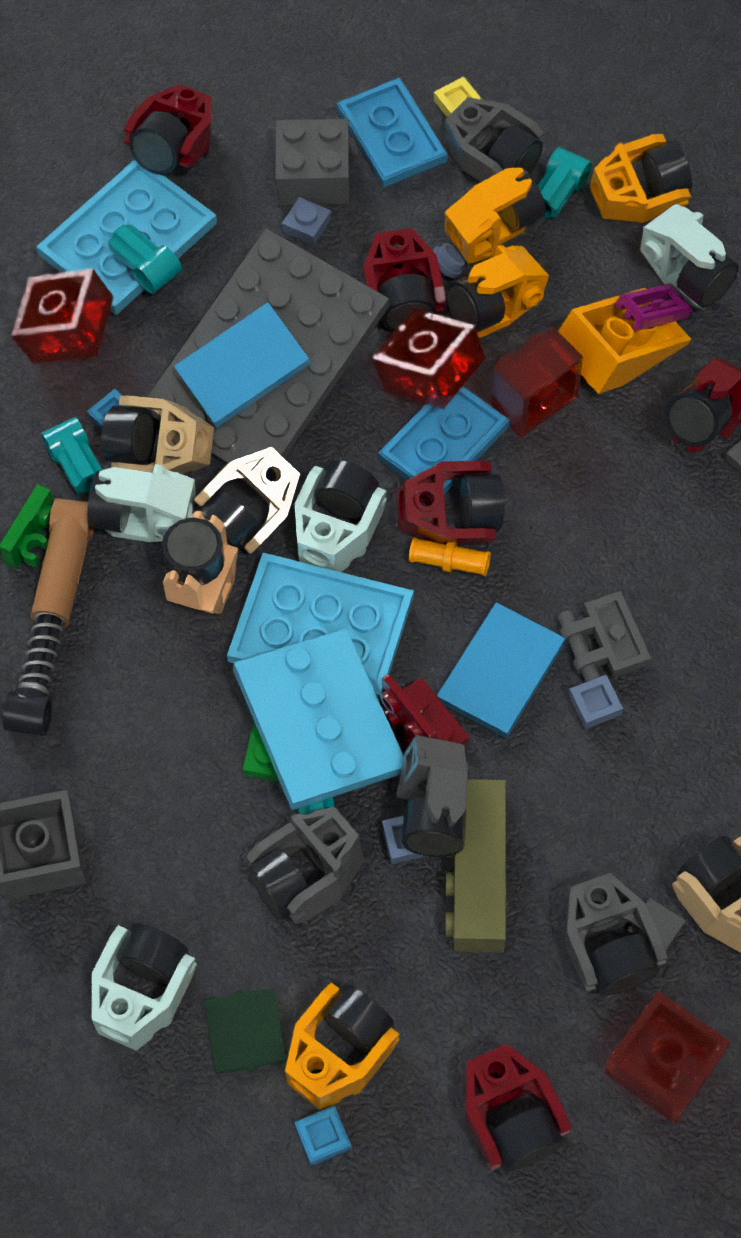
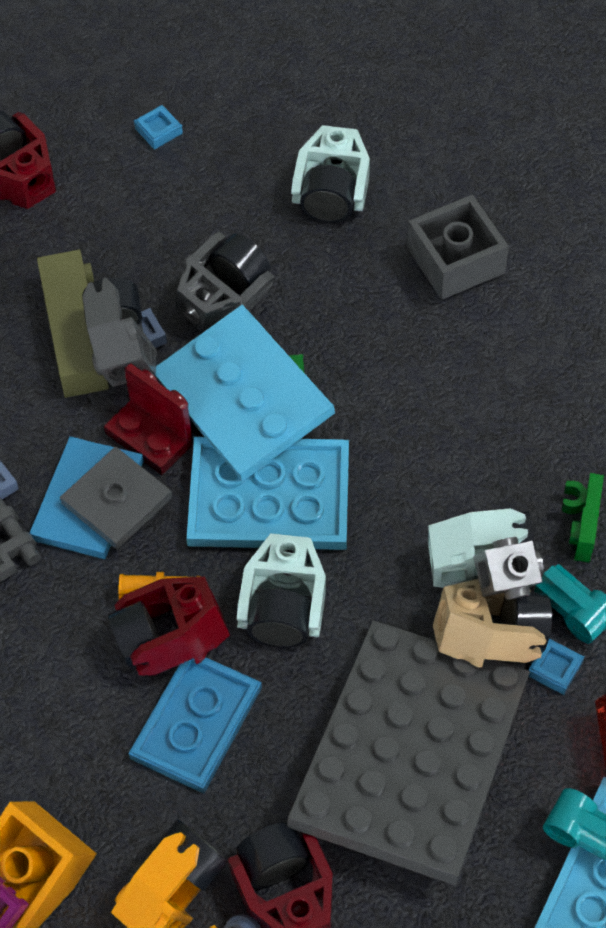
camera: 165 degrees right, 5 degrees down
(29, 706) = (539, 493): piece -> none
(131, 438) = (509, 568): none -> brick
(199, 563) = (400, 484): piece -> none
(240, 525) = (377, 581): piece -> none
(242, 364) = (428, 712): dark azure tile -> none
(245, 1031) = (240, 180): clear green piece -> none
(360, 1024) = (147, 178): light orange piece -> none
(429, 358) = (228, 780): clear red brick -> none
(472, 647) = (116, 497): none -> dark grey plate
(536, 380) = (102, 779): clear red brick -> none

